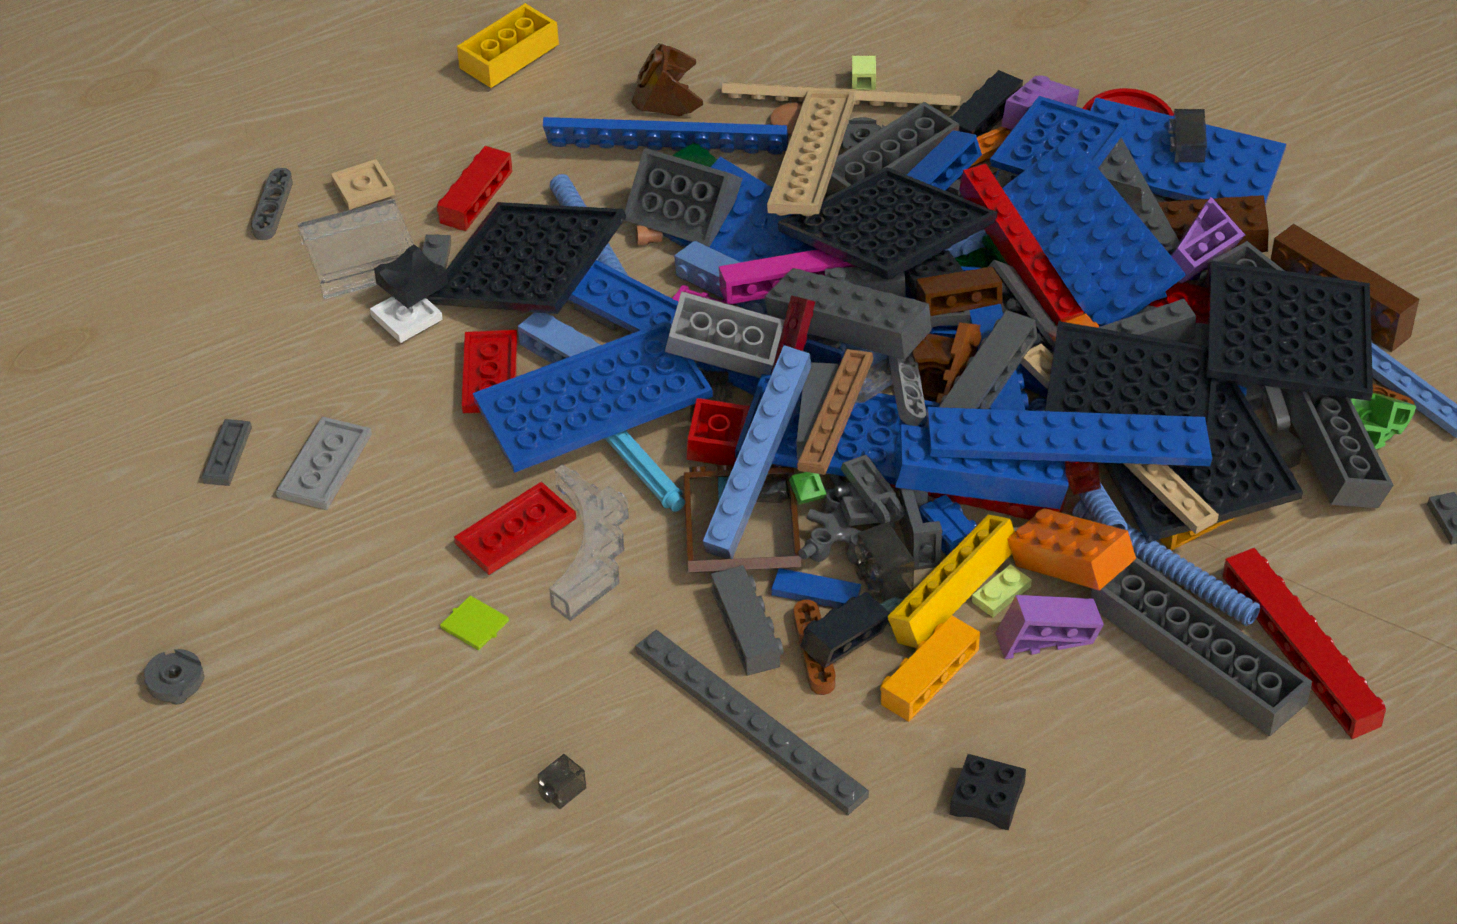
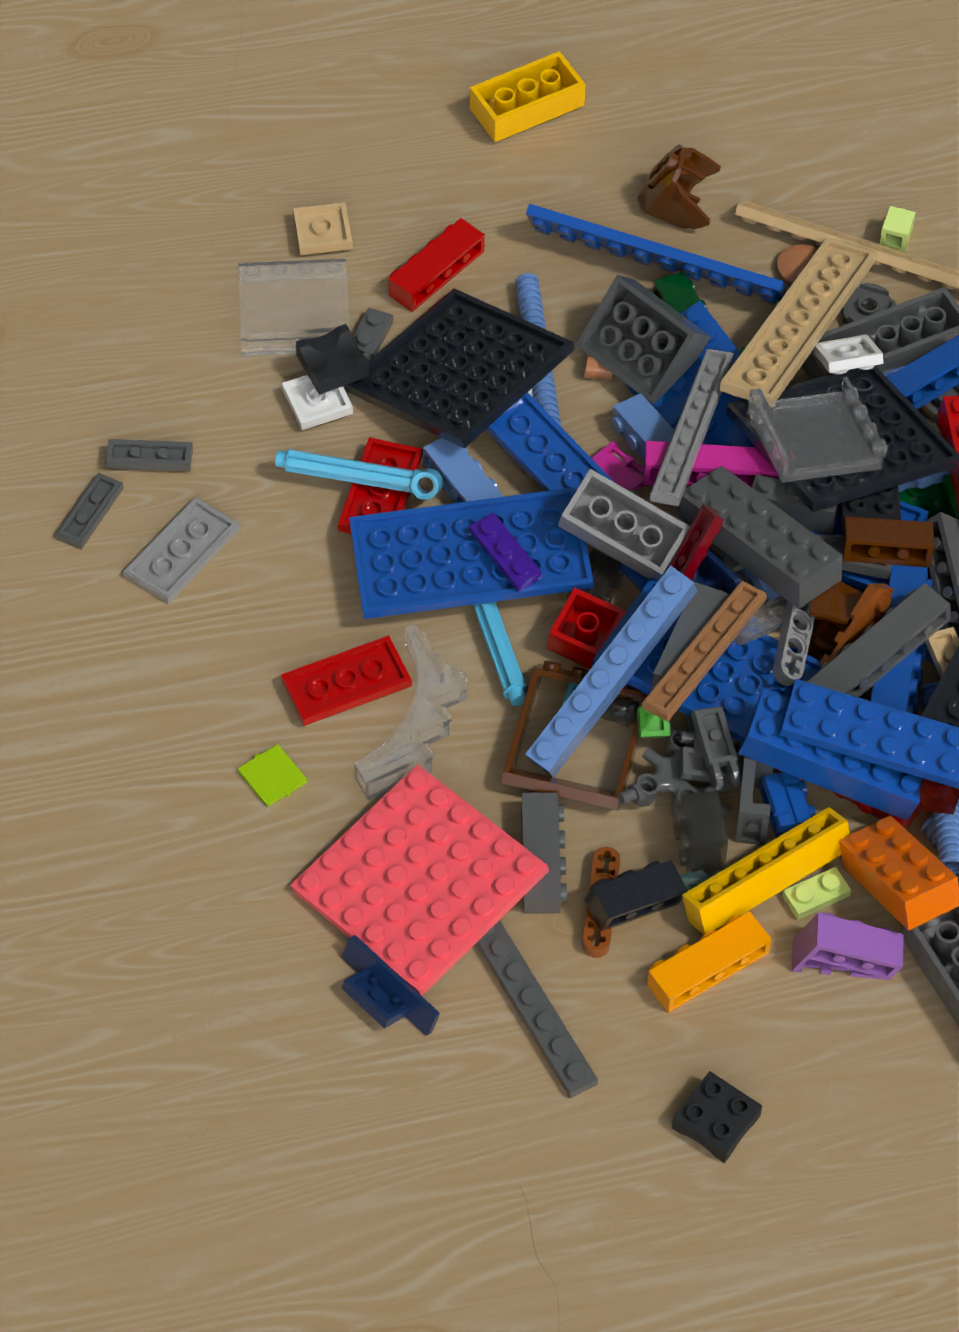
camera: 15 degrees right, 10 degrees up
(267, 203) = (228, 228): dark grey beam -> none
(267, 393) = (149, 455): none -> dark grey plate
(464, 359) = (359, 472): none -> medium azure piece
(561, 781) = (297, 980): clear smoke brick -> none
(625, 384) = (505, 552): none -> dark purple plate
(643, 668) = (420, 878): none -> coral plate
(646, 768) = (383, 991): none -> dark blue bracket
(754, 247) = (691, 428): none -> light grey tile
(815, 588) = (625, 836): blue tile -> none
(866, 163) = (848, 353): none -> white plate
(868, 221) = (817, 434): none -> clear panel

